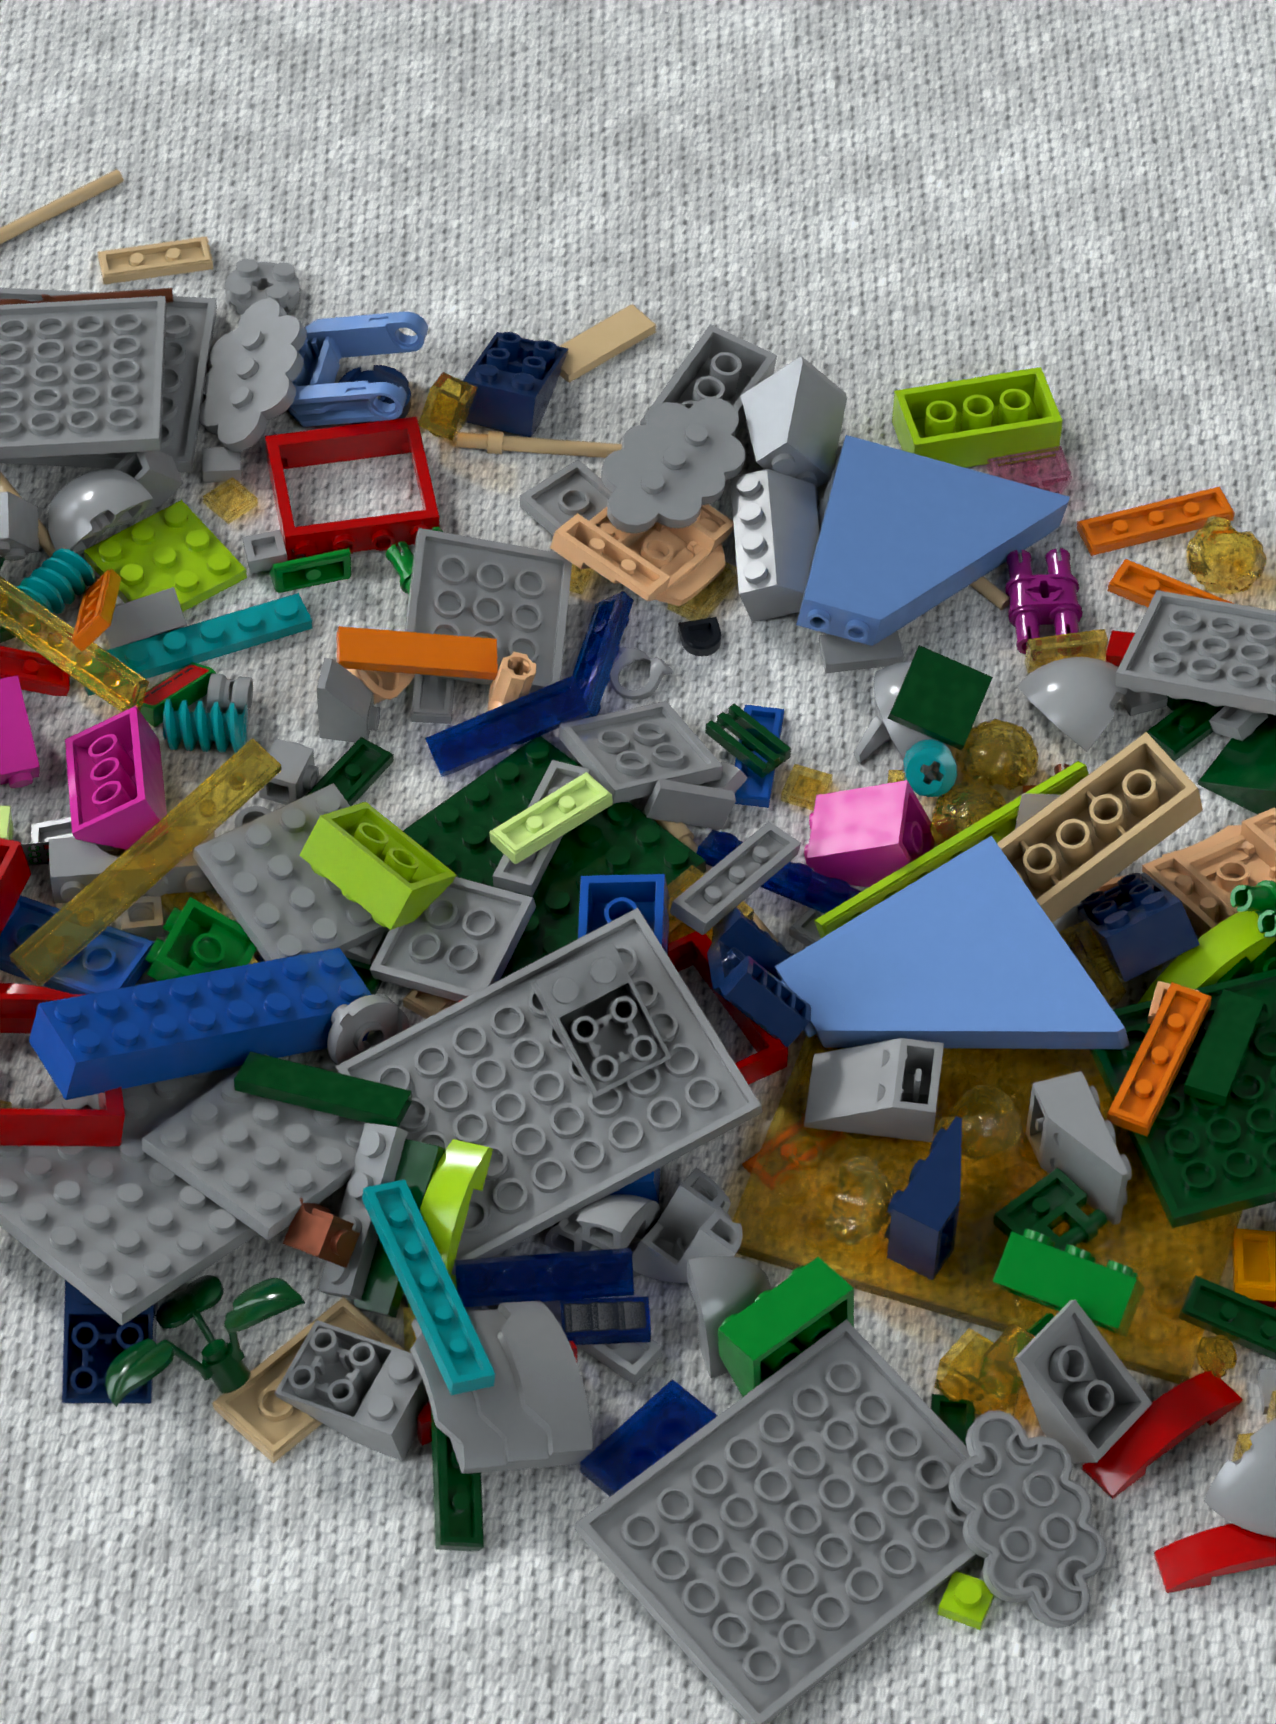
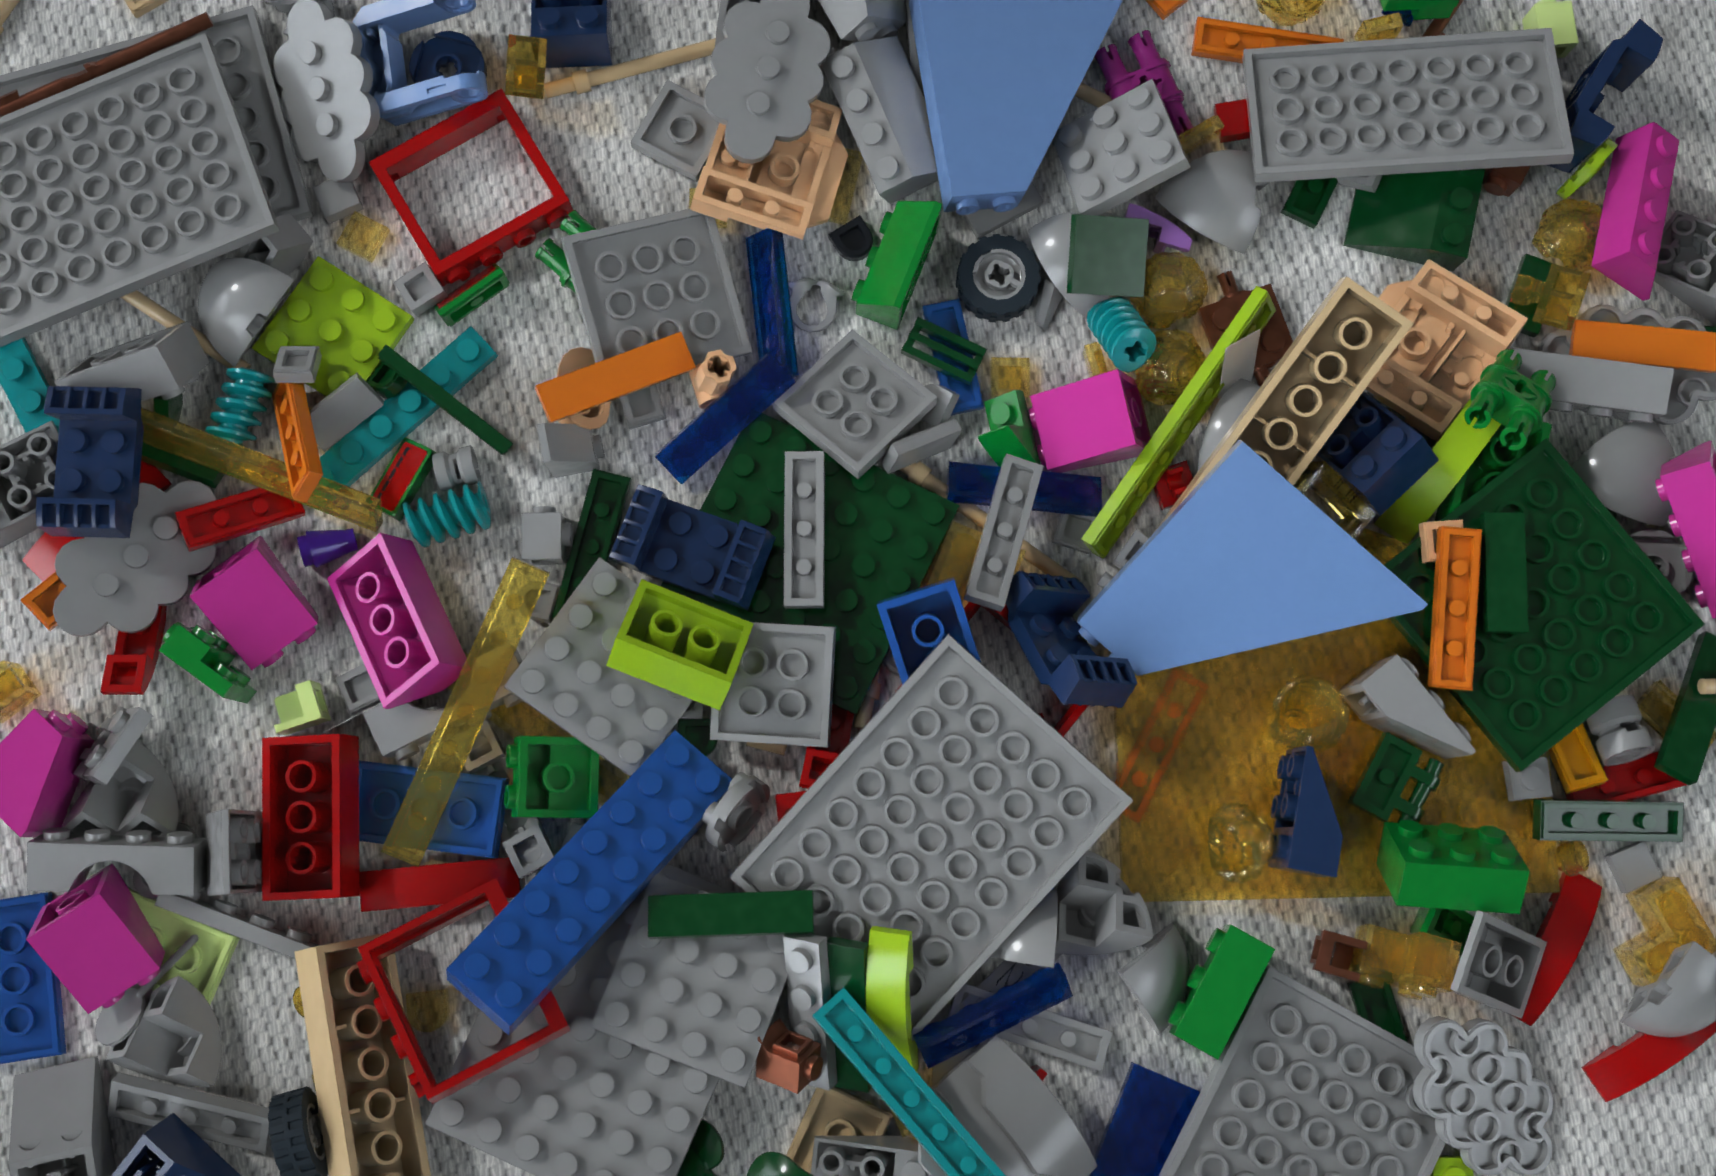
camera: 25 degrees left, 30 degrees up
(72, 717) = (324, 546): none -> dark purple cone
(122, 564) = (297, 364): none -> light grey tile
(201, 609) = (386, 381): none -> dark green tile
(247, 633) = (444, 400): none -> dark green tile
(426, 809) = (692, 548): none -> dark blue plate
(551, 818) = (812, 524): yellowish green tile -> none
(601, 1019) = (958, 767): light grey slope -> none
(606, 1320) = (1058, 1032): tile -> none
(736, 659) = (897, 261): none -> green slope
(789, 813) = (1009, 428): none -> green slope
(824, 721) = (998, 278): none -> black wheel
(877, 1089) = (1204, 708): light grey slope -> none
(921, 1345) = (1334, 953): none -> copper window
(992, 620) = (1120, 150): none -> light grey plate
(1006, 705) = (1161, 229): none -> medium lavender slope
(1192, 1259) = (1530, 783): none -> light grey plate

